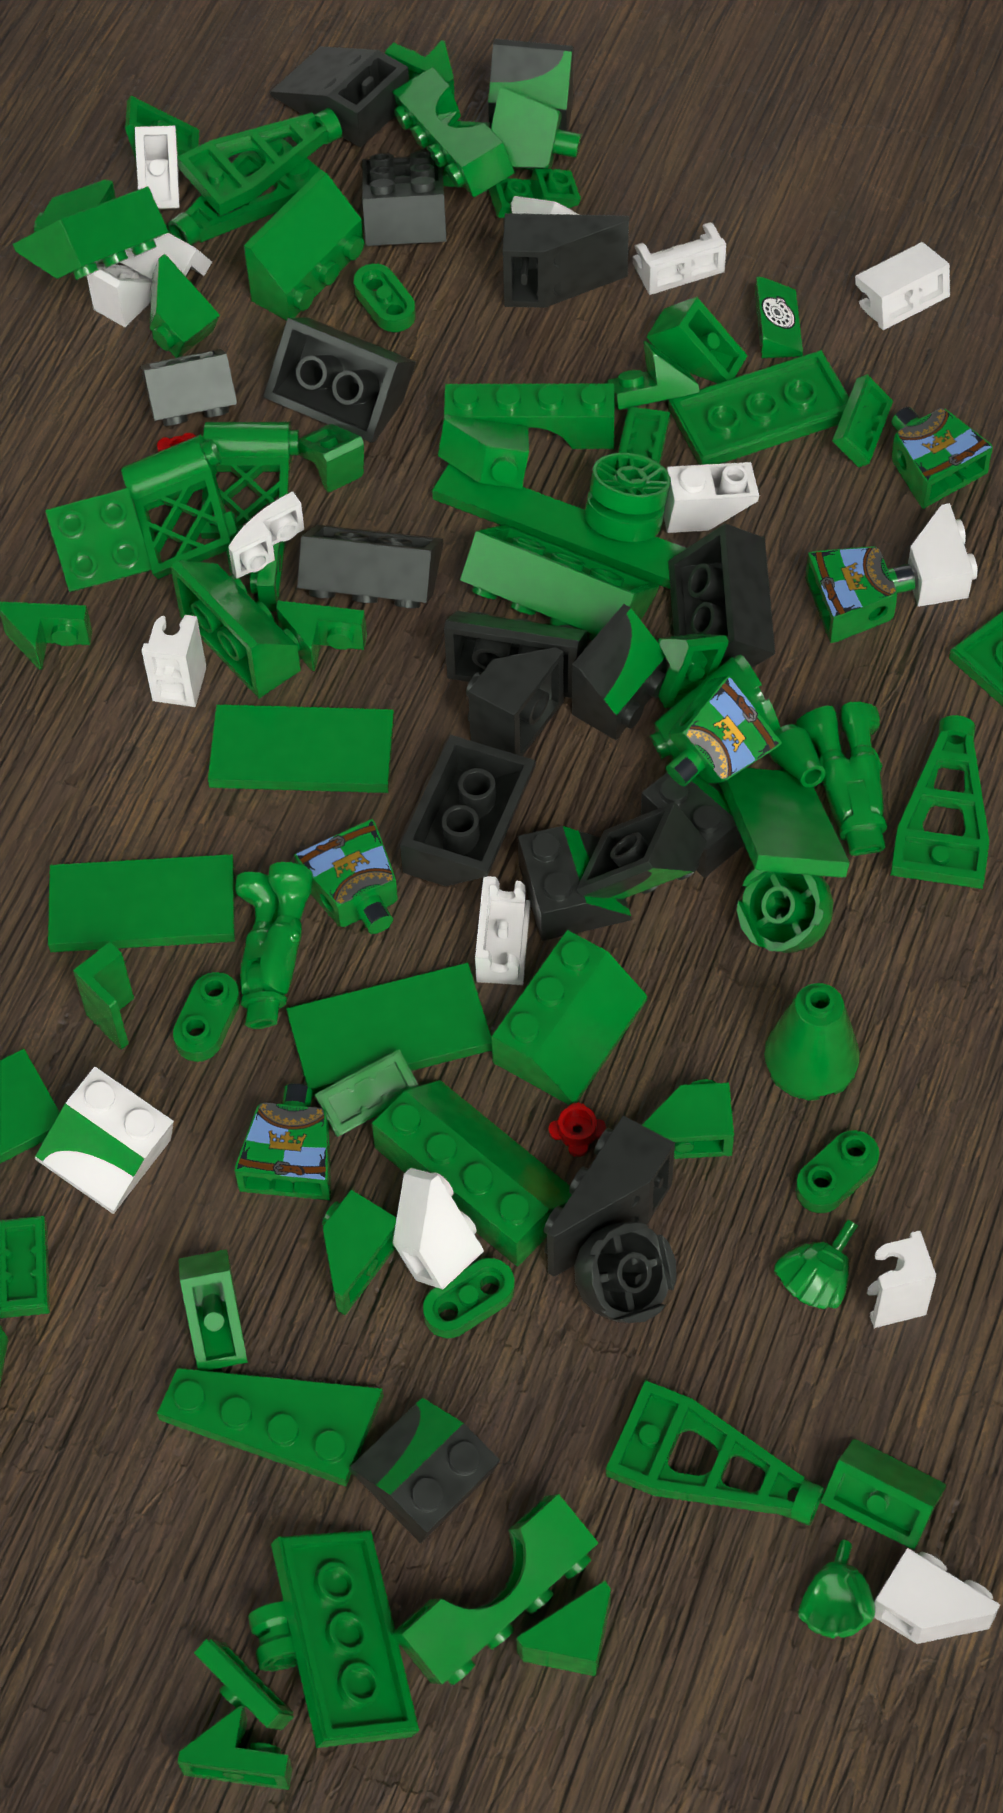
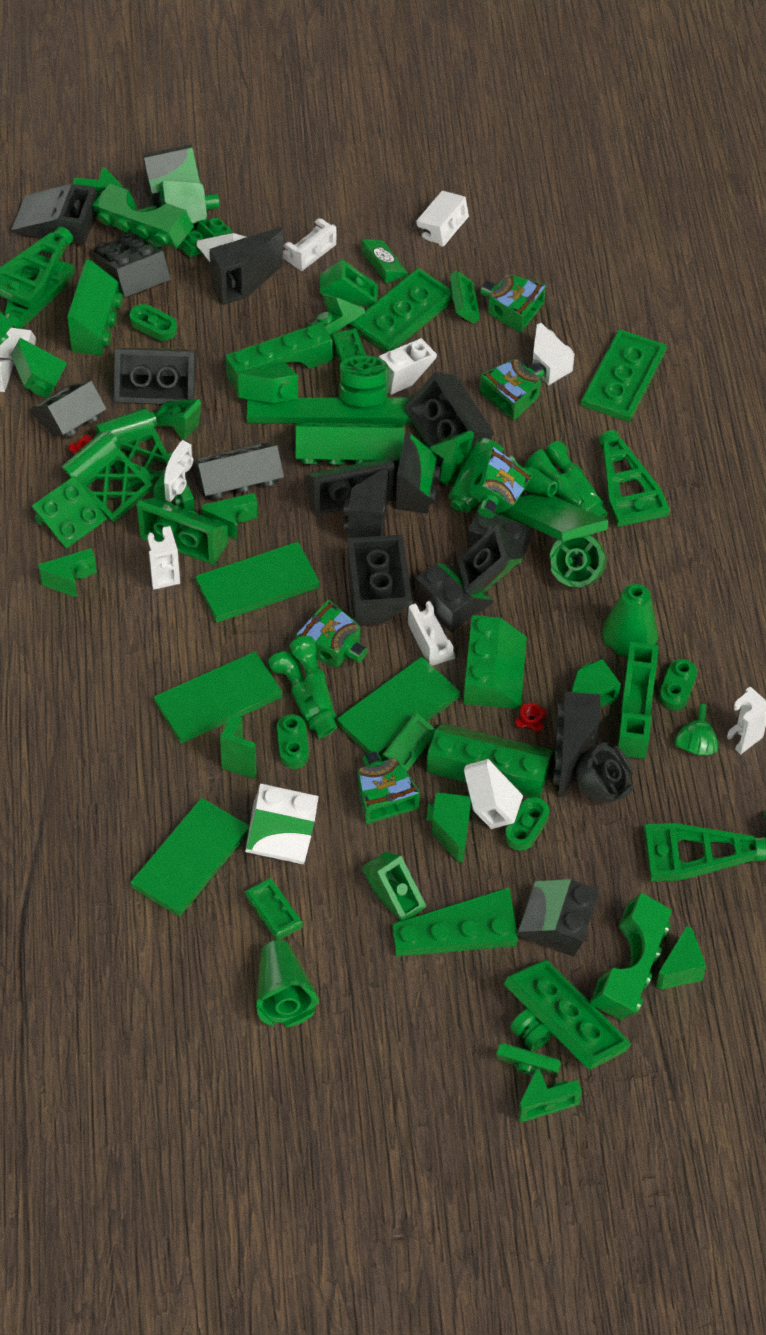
camera: 30 degrees left, 5 degrees down
(730, 1202) = (637, 699): none -> green arch

